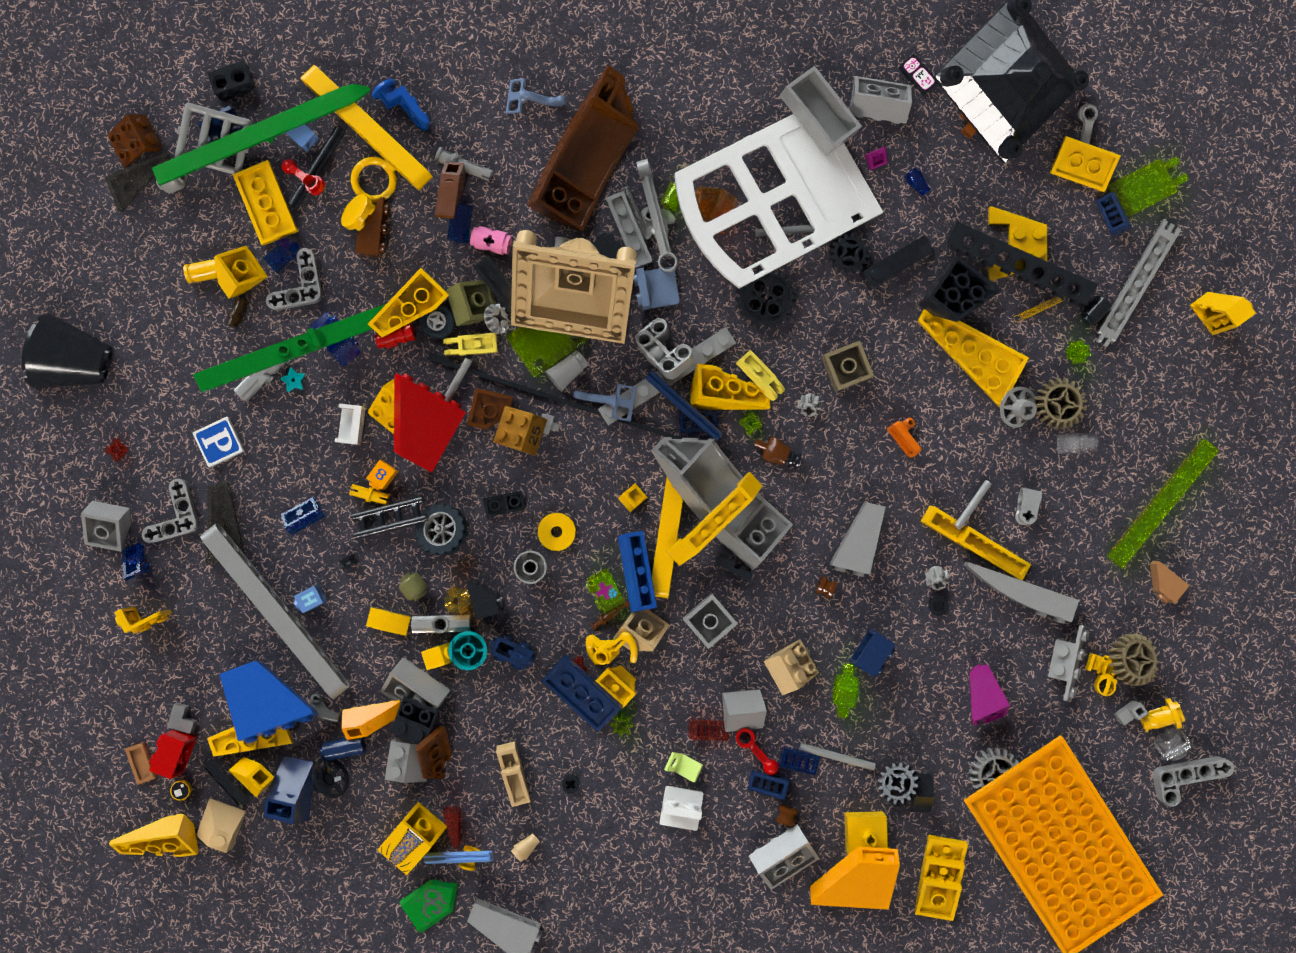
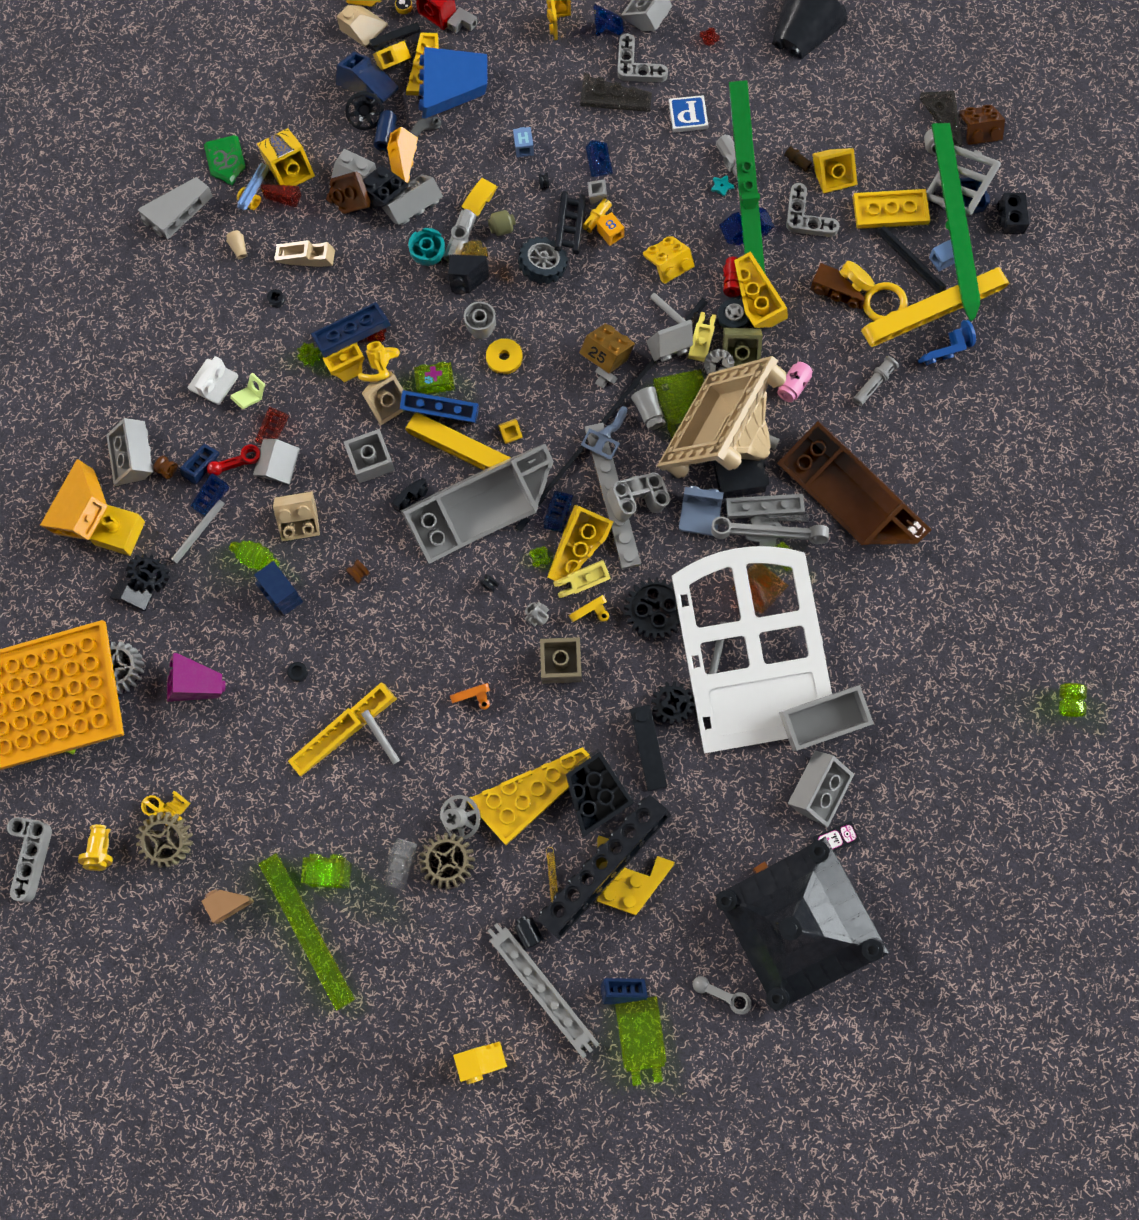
camera: 115 degrees right, 15 degrees down
(200, 271) = (845, 137): yellow piece -> none
(274, 611) = (523, 111): light grey beam -> none
(283, 253) = (841, 210): clear blue slope -> none
(290, 167) = (895, 248): red piece -> none
(343, 502) = (597, 190): none -> light grey slope
(351, 424) = (664, 219): white panel -> none
(422, 422) = (644, 270): red slope -> none
(436, 656) = (433, 220): yellow brick -> none
(450, 189) = (853, 357): reddish brown slope -> none
(460, 225) = (821, 361): clear blue slope -> none
(487, 408) = (638, 331): reddish brown plate -> none
(491, 371) = (671, 341): none -> light grey slope
(503, 504) = (546, 319): black slope -> none
(518, 654) = (407, 289): dark blue brick -> none
(524, 95) = (926, 451): sand blue piece -> none
(608, 616) = (408, 371): reddish brown piece -> none
(684, 405) = (577, 496): dark blue axle -> none
(716, 520) = (461, 489): yellow slope -> none
(774, 451) = (505, 568): reddish brown piece -> none
(781, 355) = (596, 605): none -> yellow piece
(860, 541) = (387, 617): light grey slope -> none
(876, 158) = (761, 765): magenta slope -> none
(917, 181) = (725, 796): clear blue cone -> none
(937, 577) = (324, 677): light grey gear -> none
(941, 877) = (46, 585): yellow slope -> none
(1027, 594) = (273, 757): light grey slope -> none
(1028, 503) = (360, 792): light grey piece -> none
(1066, 661) = (190, 776): light grey bracket -> none
(1078, 352) = (492, 897): clear neon green gear -> none
(1084, 164) = (686, 976): yellow plate -> none
(1112, 503) = (326, 872): none -> clear neon green brick
(1131, 711) = (115, 822): light grey piece -> none
(1172, 744) = (66, 849): clear piece -> none

